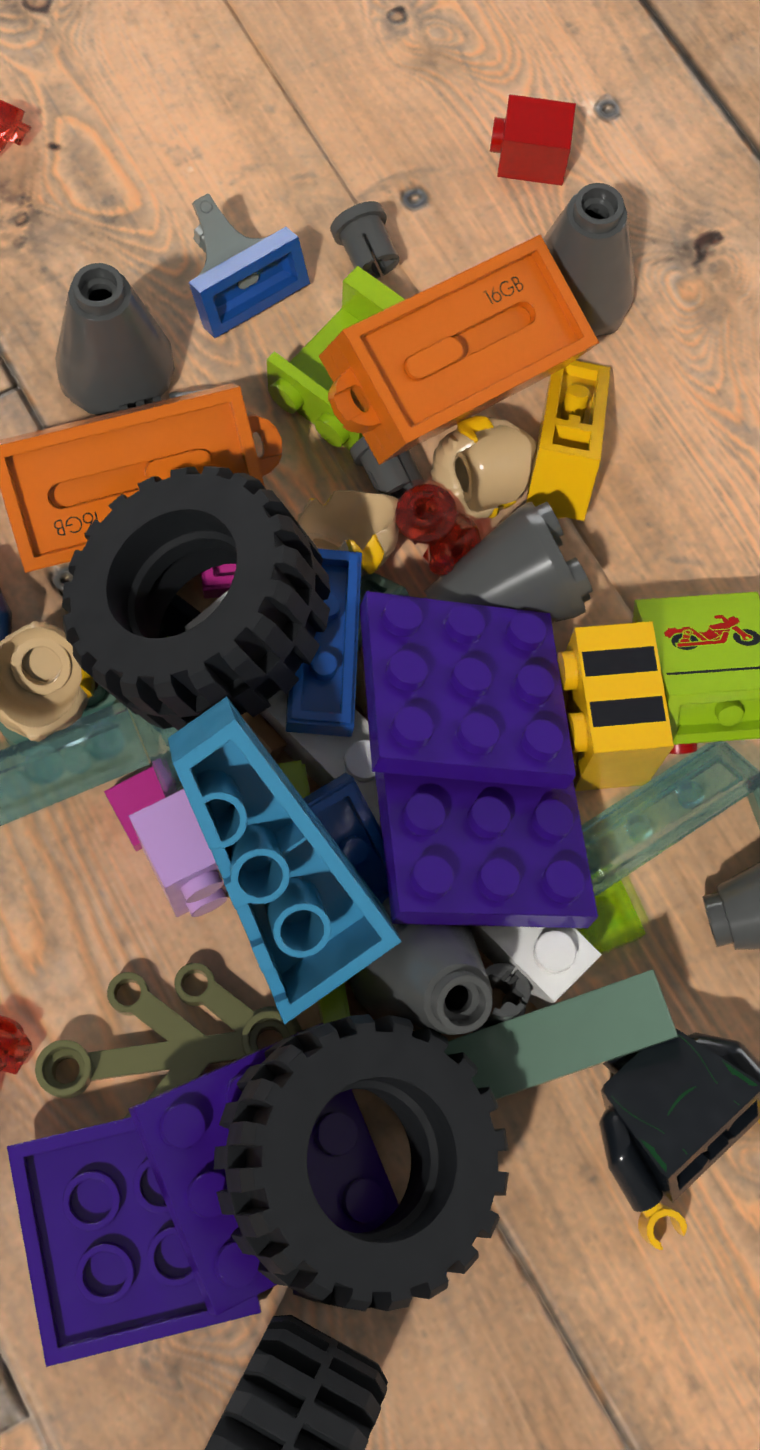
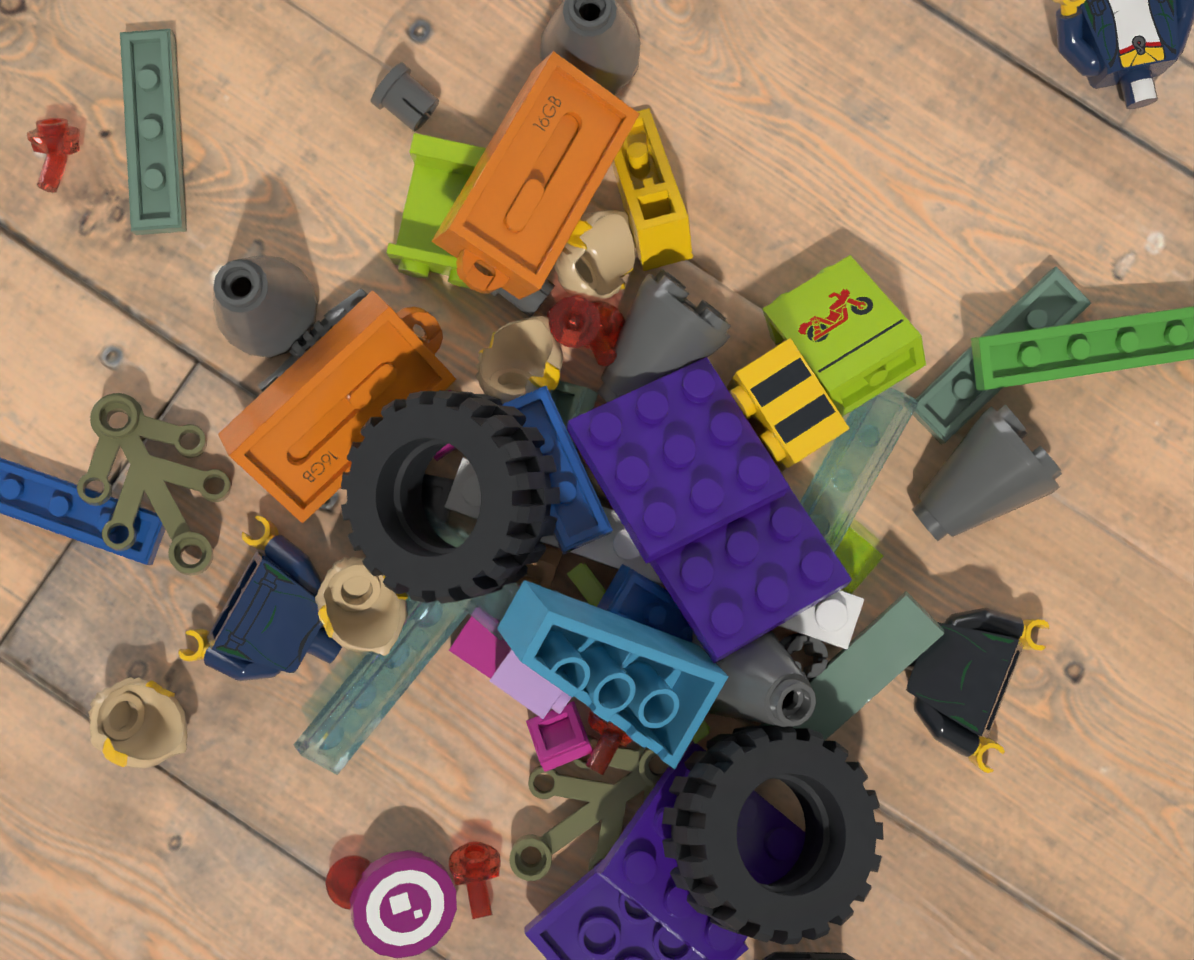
camera: 20 degrees left, 15 degrees up
(99, 164) = (153, 132): none -> sand green tile
(173, 947) = (559, 737): none -> dark pink tile
(235, 969) = (607, 745): none -> clear red plate
(240, 271) = (320, 177): blue piece -> none

